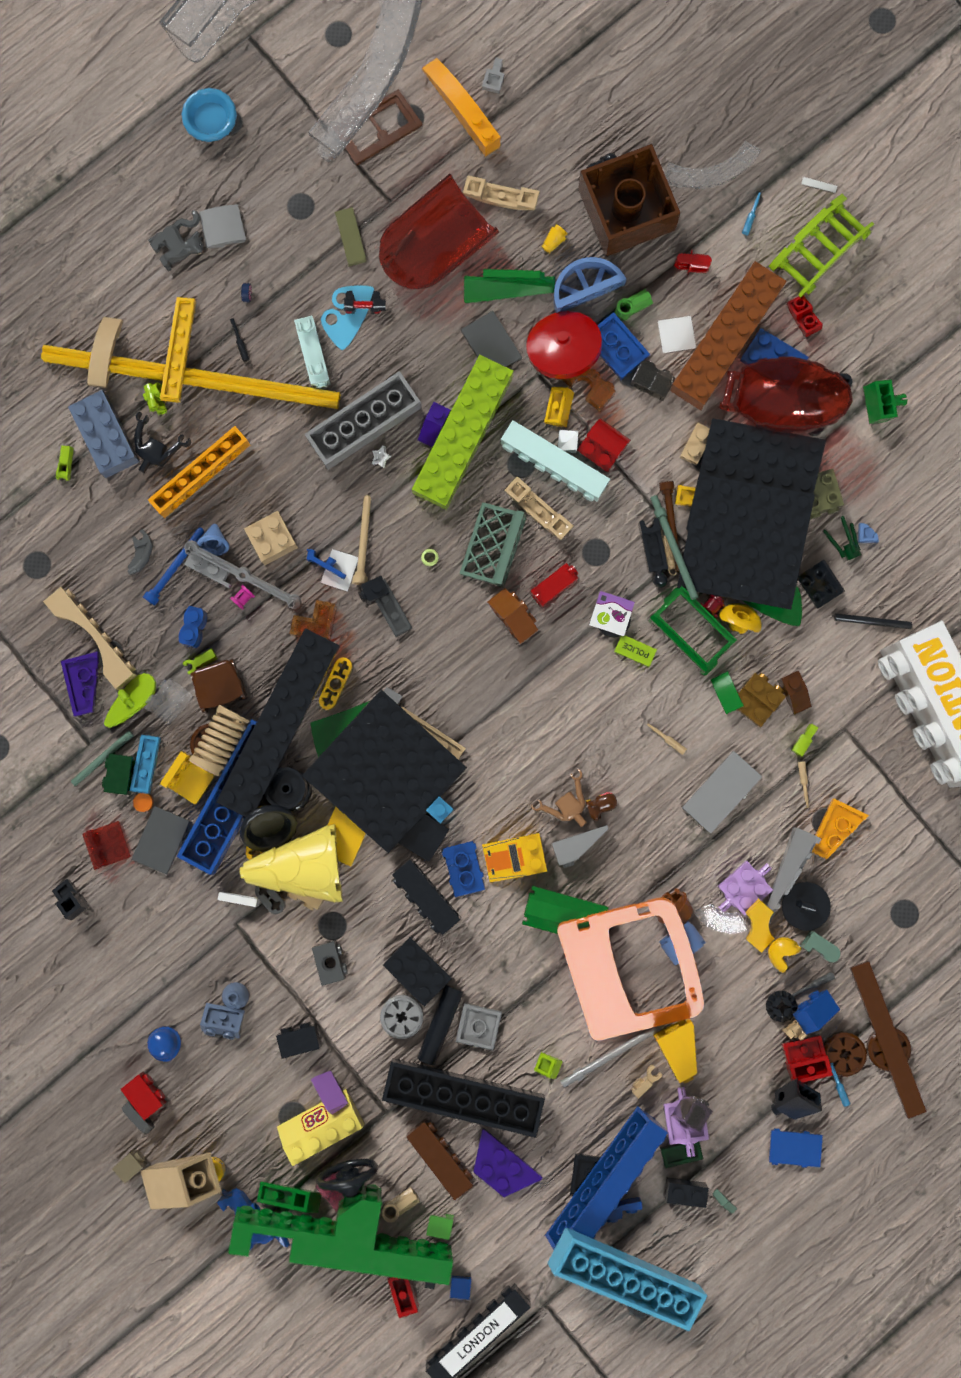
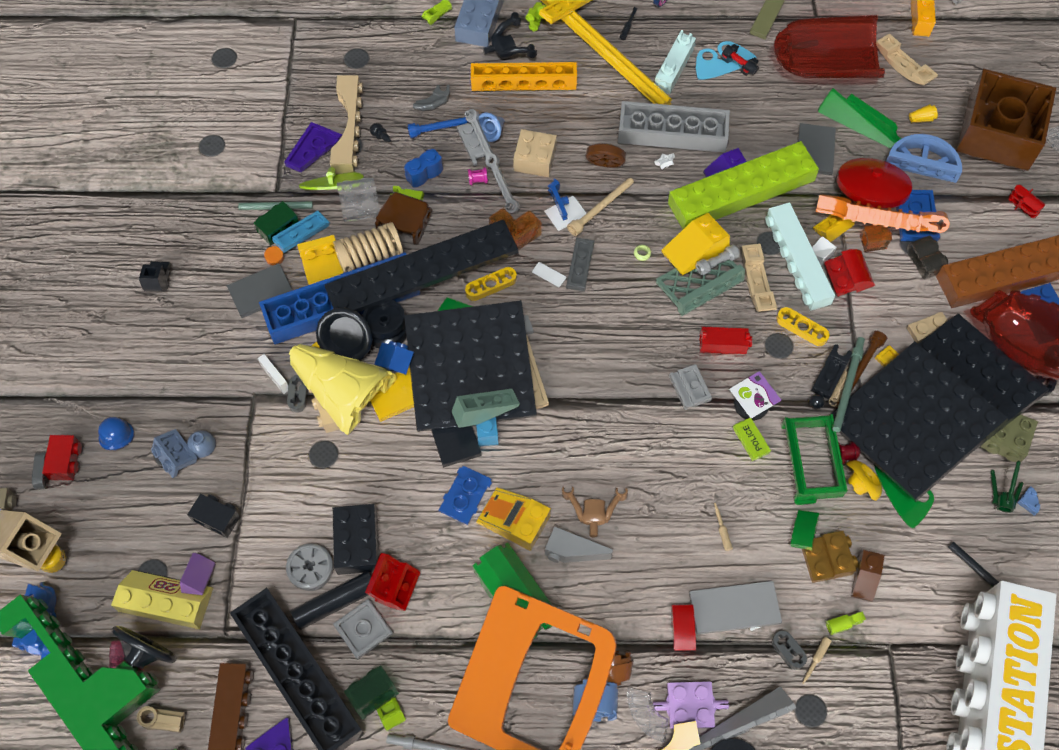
camera: 35 degrees right, 20 degrees down
(106, 845) = (219, 263): clear red hinge -> none
(122, 621) = (379, 132): none -> black bar
(289, 1197) = (85, 634): green slope -> none
(322, 813) = (394, 357): none -> blue brick
(329, 974) = (294, 465): dark grey brick -> none
(332, 495) = (605, 155): none -> reddish brown wheel
(372, 636) = (549, 274): none -> white sticker
(373, 590) = (578, 239): black bracket -> none
(426, 896) = (415, 485): black brick -> none
(427, 798) = (480, 407): none -> sand green slope
(468, 518) = (697, 241): none -> yellow slope
(472, 979) = (392, 582): none -> red brick
(490, 534) = (704, 266): none -> light grey piece
(513, 614) = (673, 333): dark orange brick -> none
(525, 1065) = (371, 692): none -> clear green brick
(555, 392) = (920, 222): none -> piece
(558, 645) = (690, 387): none -> light grey plate
(587, 518) = (818, 329): none -> yellow beam
(602, 803) = (624, 532): reddish brown animal -> none
(634, 304) = (947, 194): bright green piece -> none
(676, 334) = (972, 242): white sticker -> none
(698, 837) = (683, 627): none -> red slope
(780, 796) = (793, 647): none -> dark grey beam
(820, 584) = (958, 505): black bracket -> none
(836, 826) = (816, 720): light orange wing -> none

